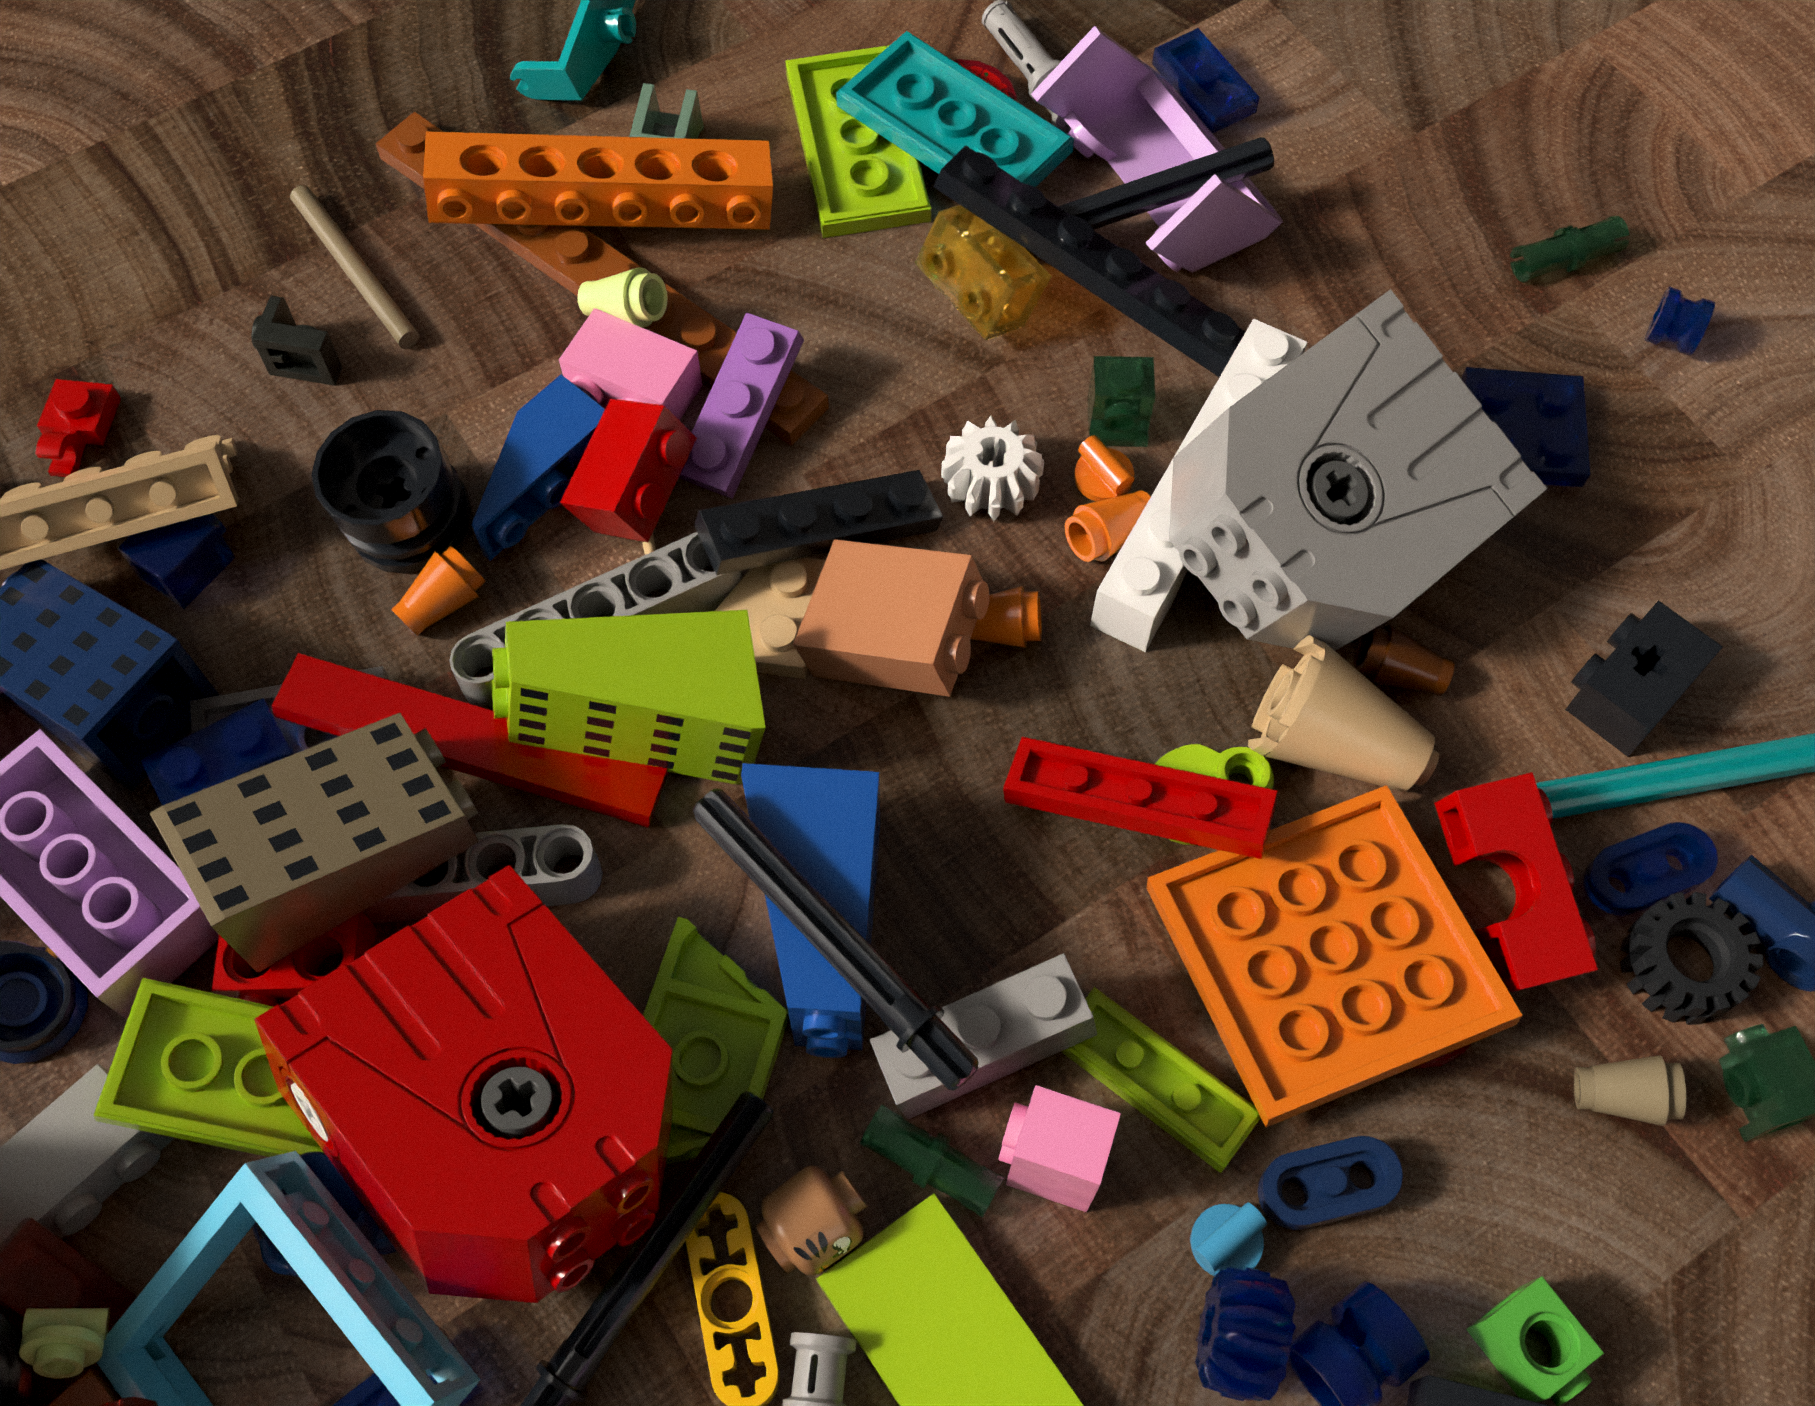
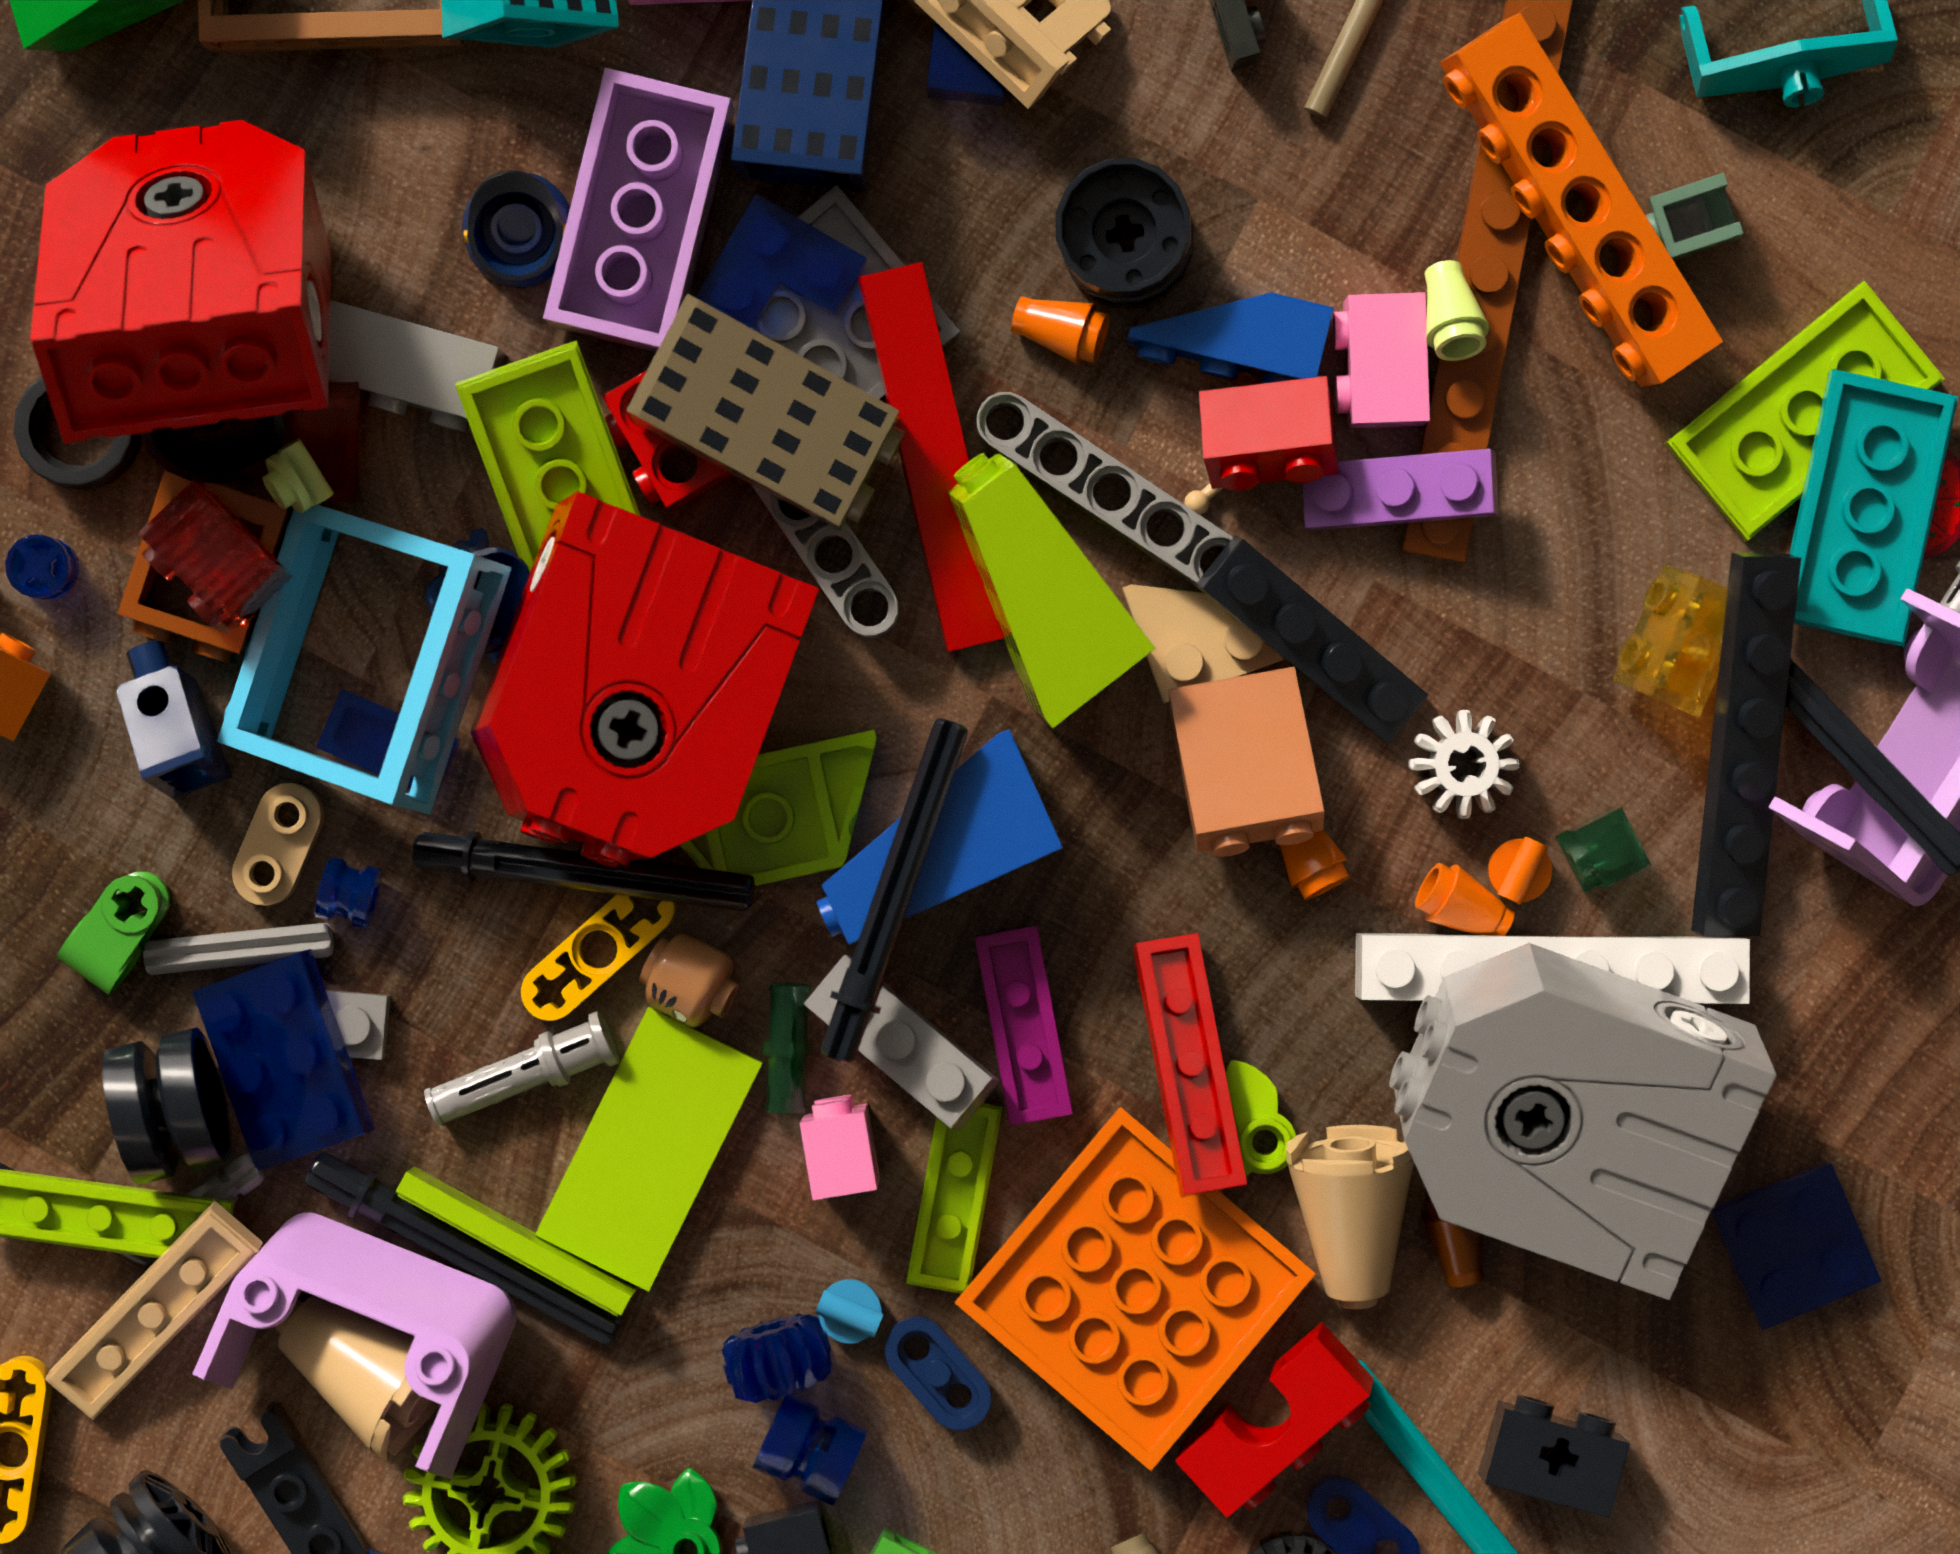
camera: 60 degrees right, 25 degrees up
(1025, 926) = (1023, 1025): none -> magenta plate

